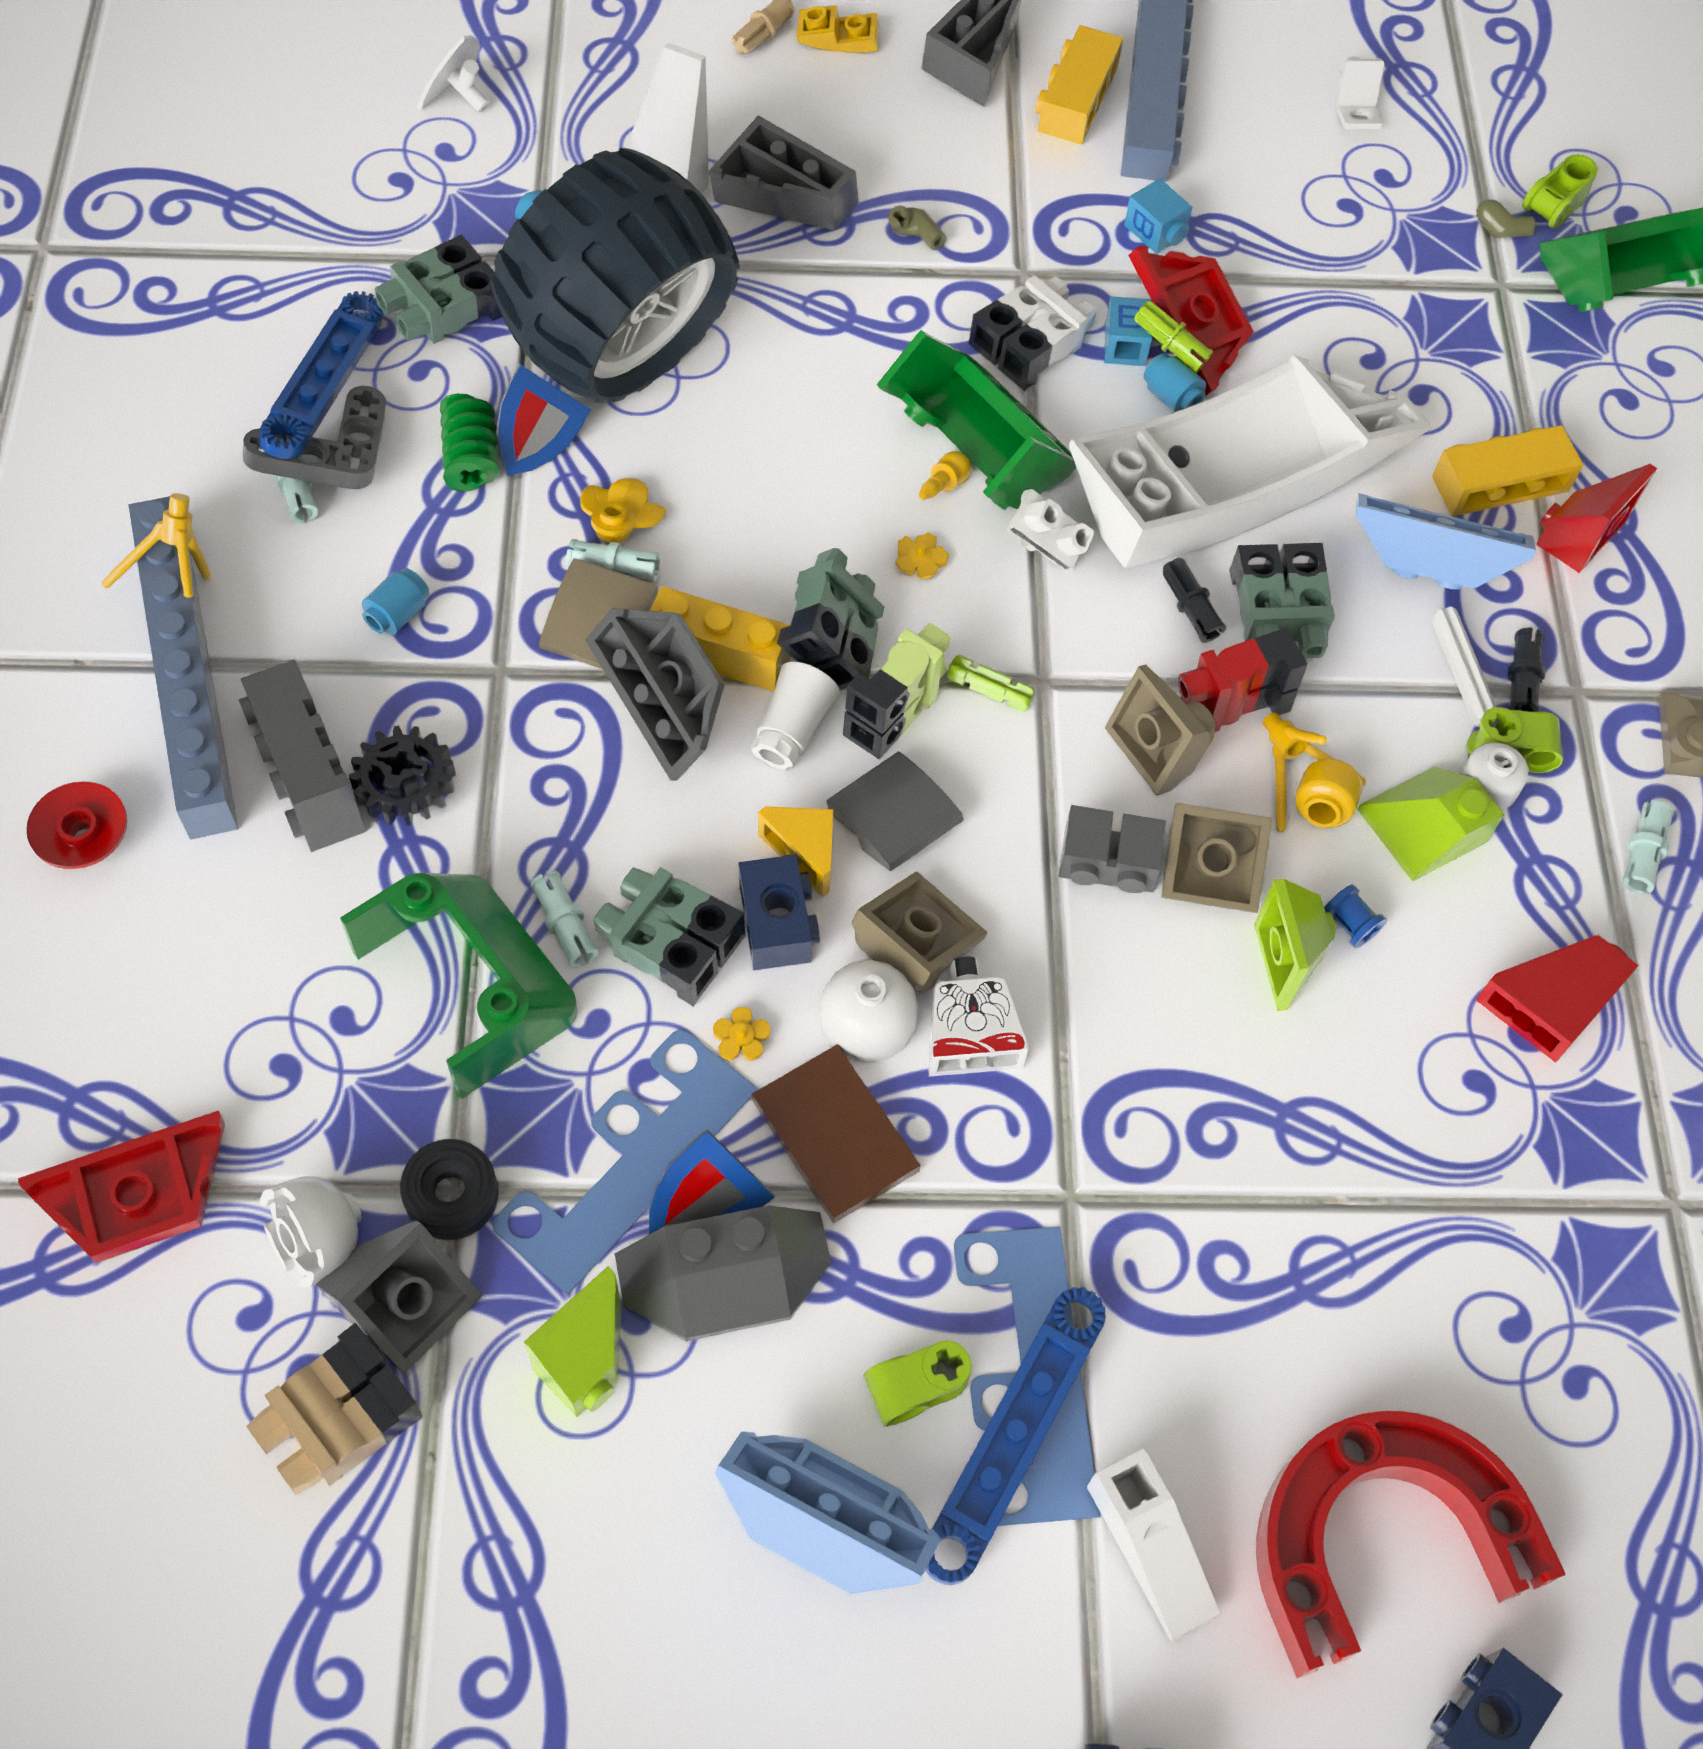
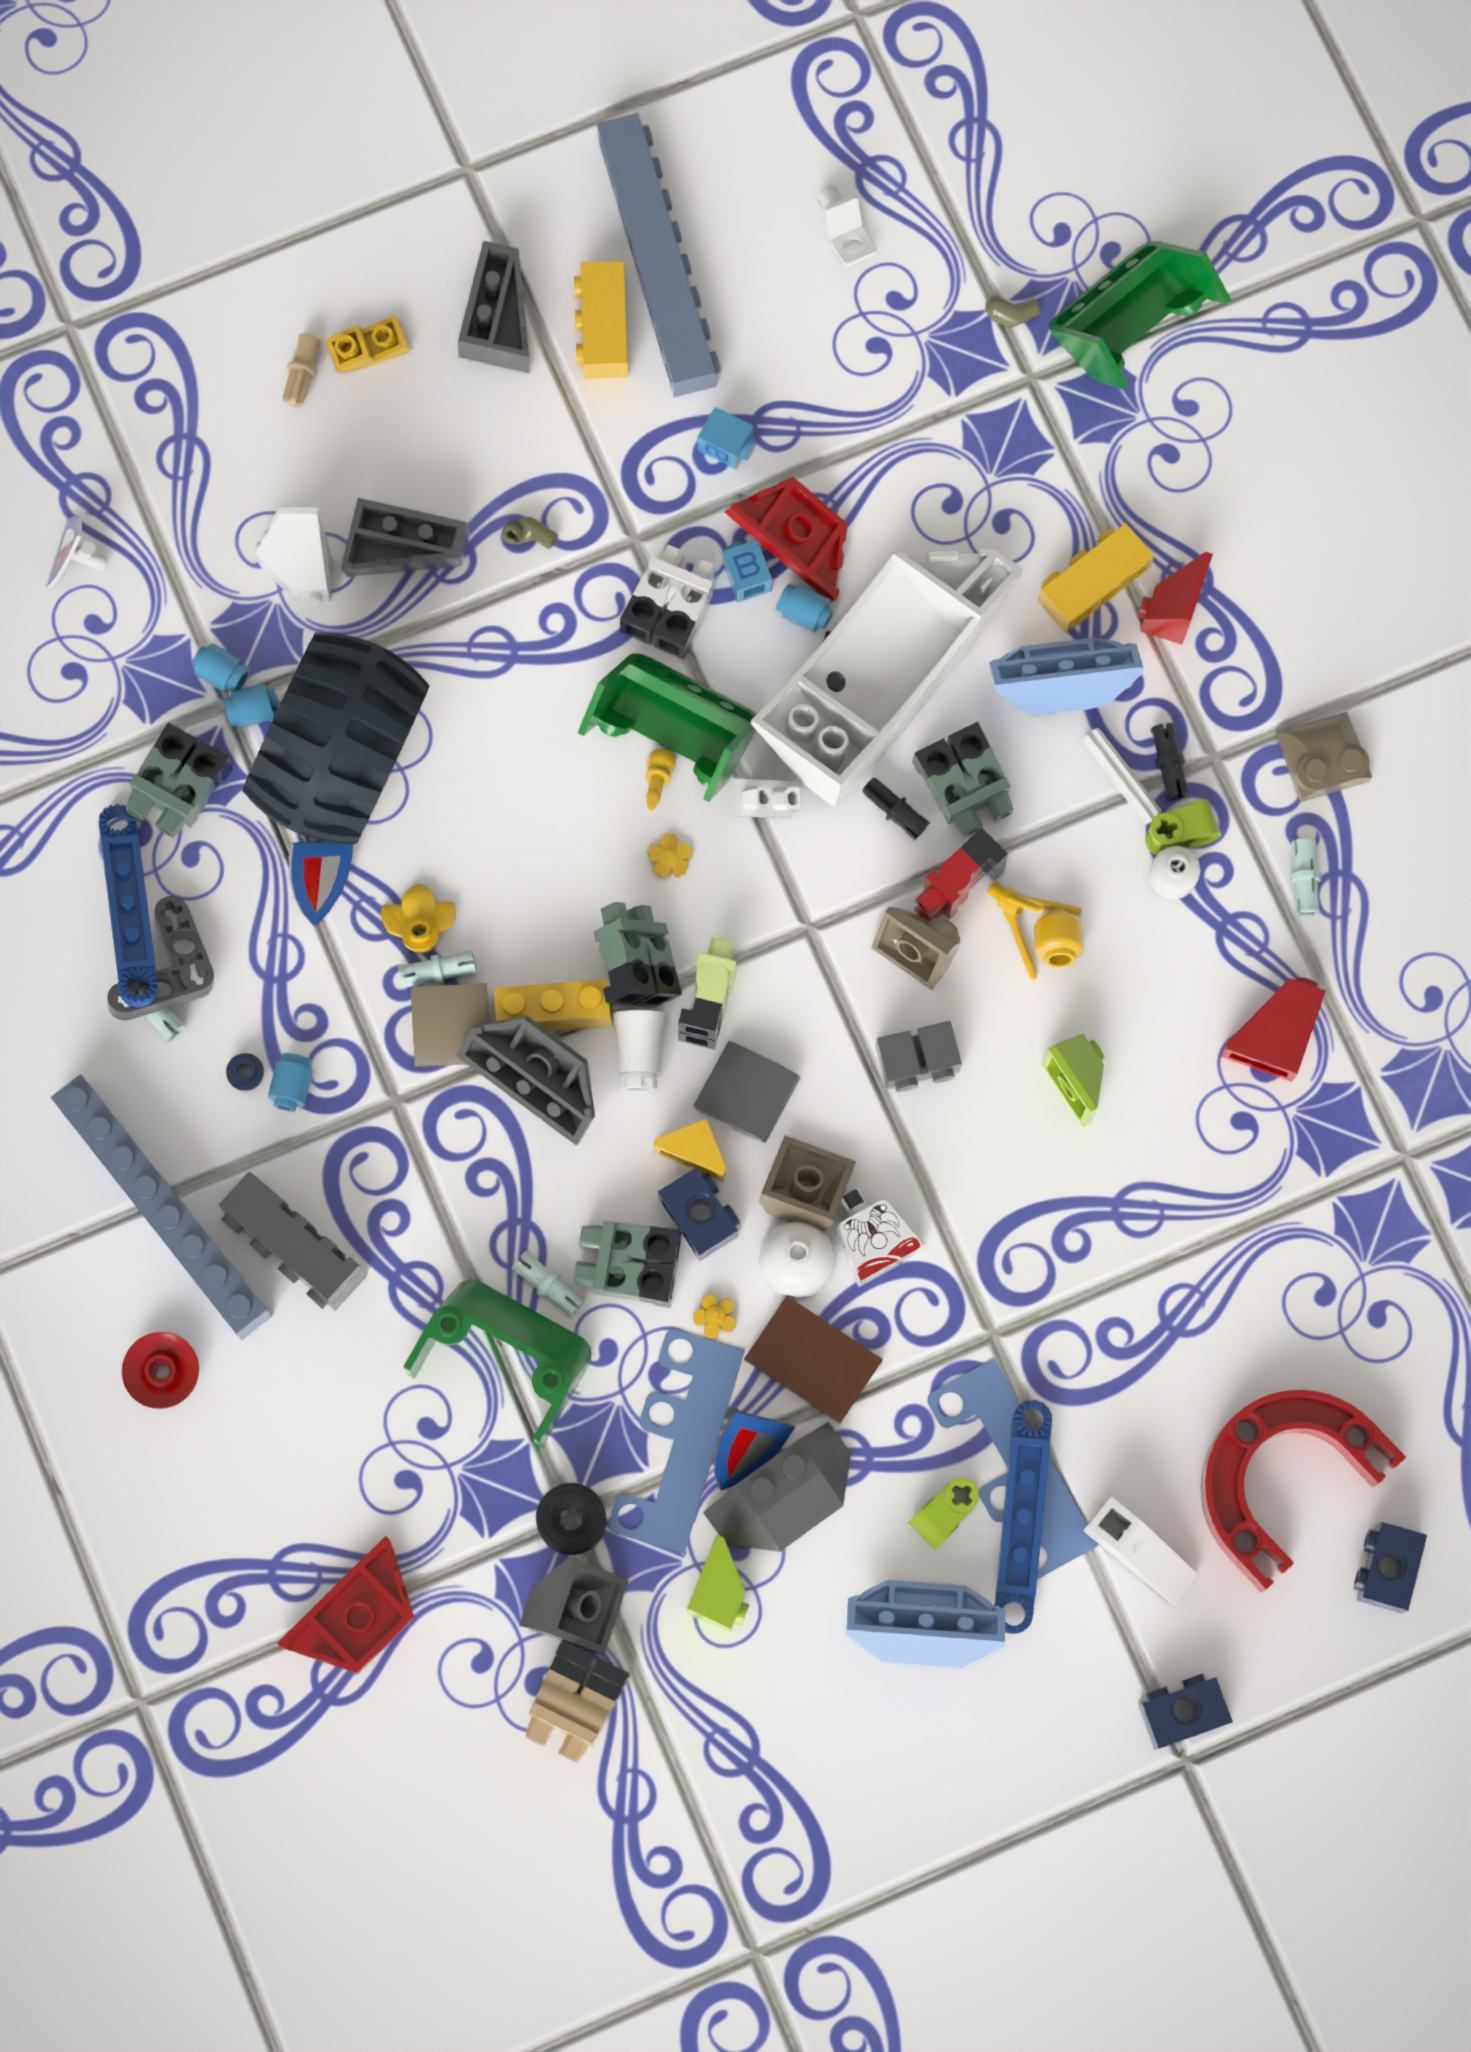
camera: 20 degrees left, 15 degrees up
(173, 530) = (108, 1113): yellow plant -> none
(311, 1226) = (495, 1588): white cylinder -> none
(355, 586) = (245, 1083): none -> dark blue plate
(406, 778) = (390, 1221): black gear -> none
(468, 442) = (272, 916): green piece -> none
(991, 683) = (771, 949): lime axle -> none
(1172, 335) = (789, 572): lime axle -> none
(1216, 857) = (996, 1030): dark tan slope -> none
(1355, 916) = (1112, 1032): blue bush -> none
(1432, 819) = (1138, 924): lime slope -> none
(1562, 190) = (1049, 266): lime piece -> none

